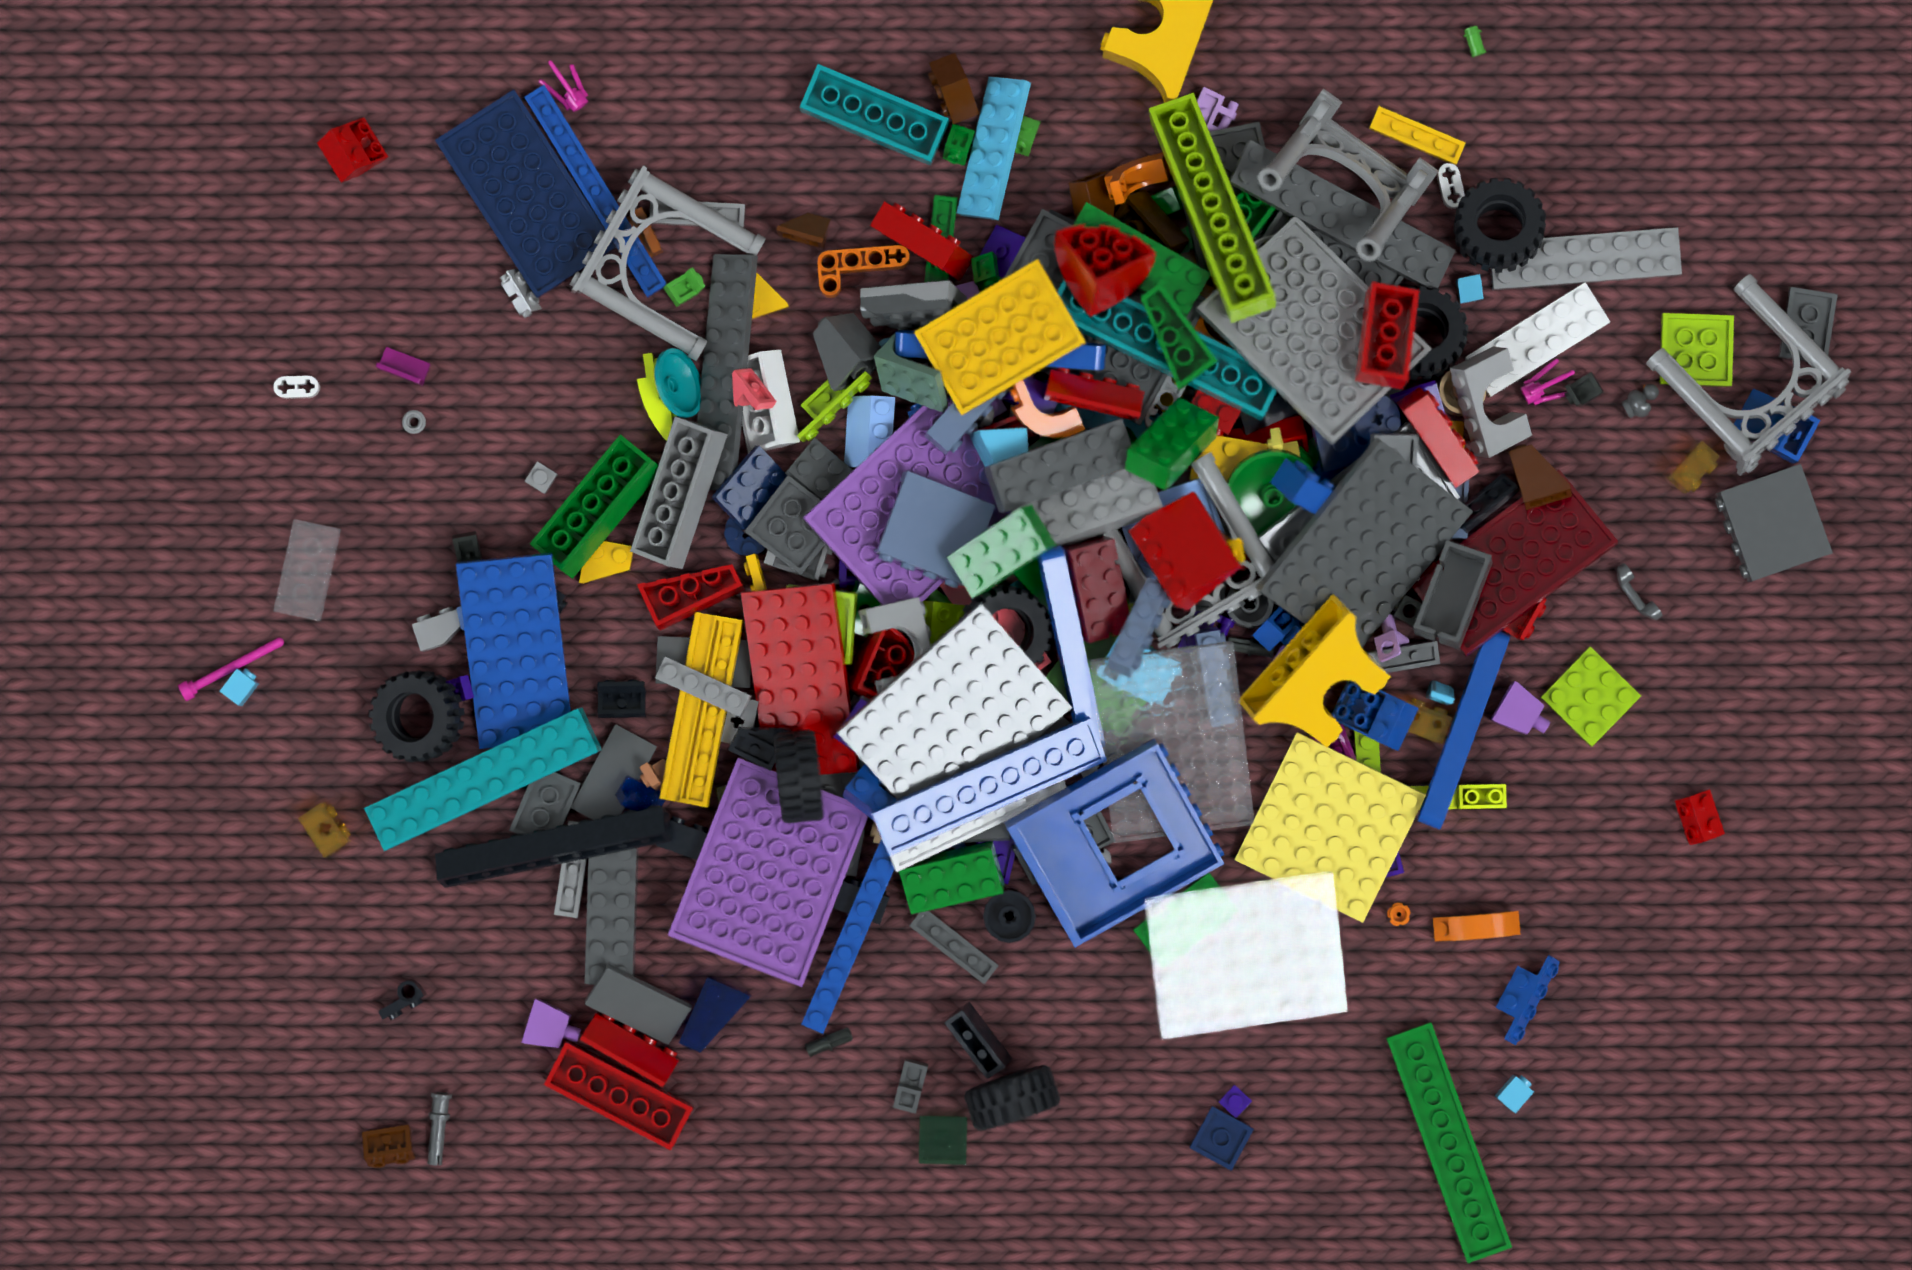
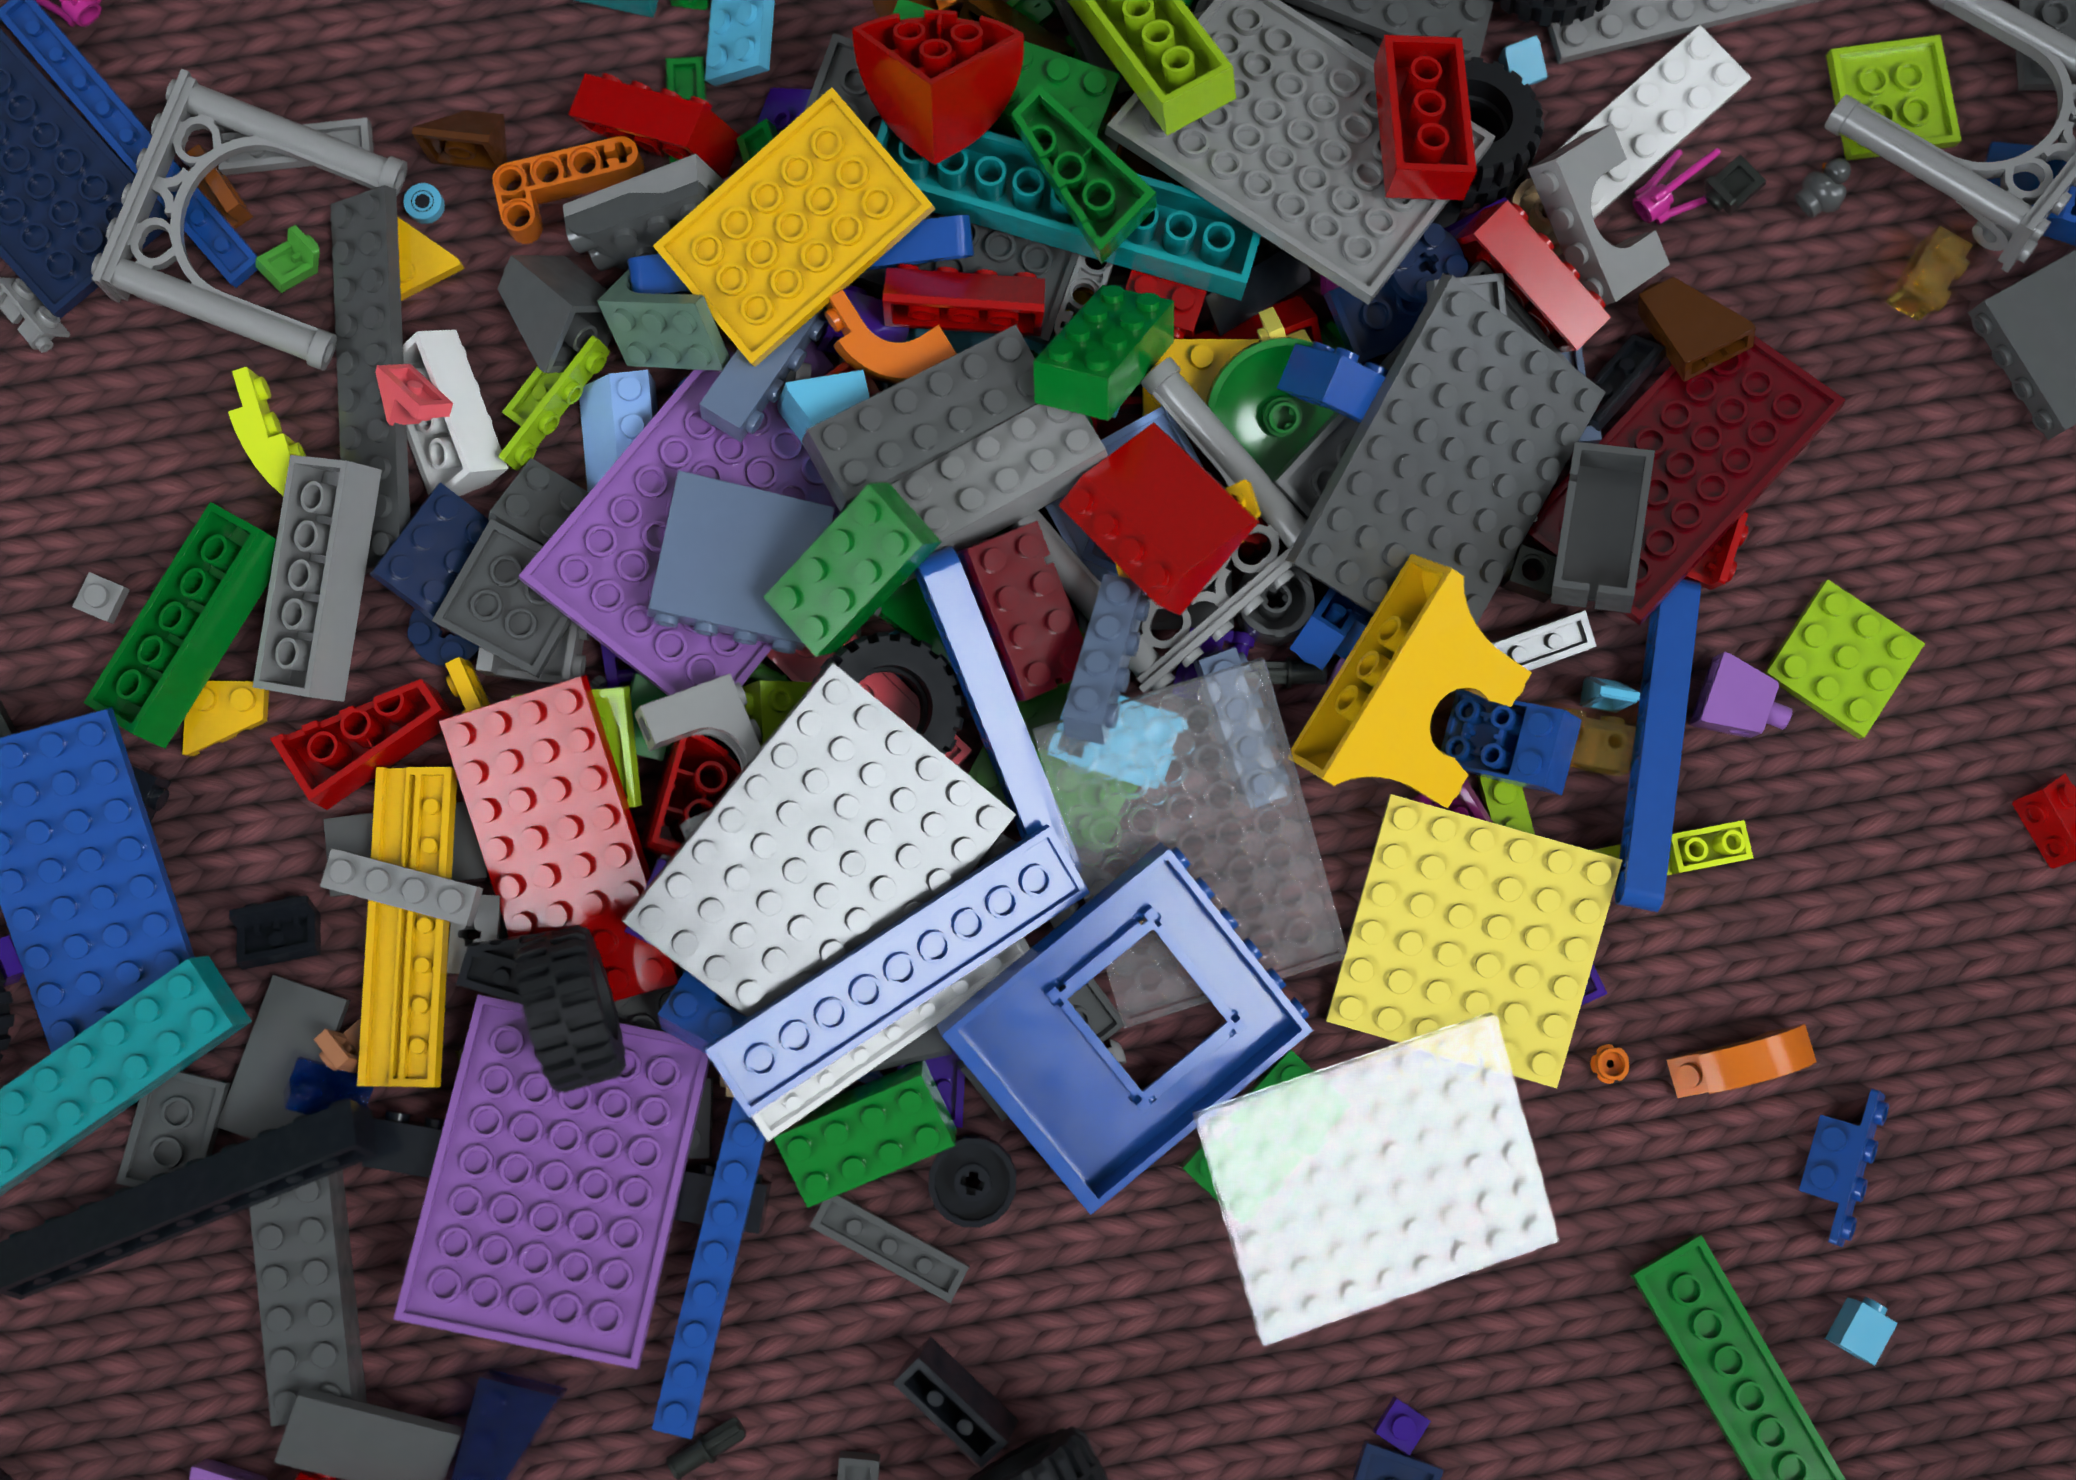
camera: 15 degrees left, 5 degrees down
(570, 887) = (232, 1264): light grey plate -> none
(678, 383) = (291, 404): teal dish -> none
(770, 262) = (424, 203): none -> medium azure tile
(1389, 638) = (1510, 618): lavender bracket -> none
(1649, 610) = (1856, 459): dark grey bar -> none

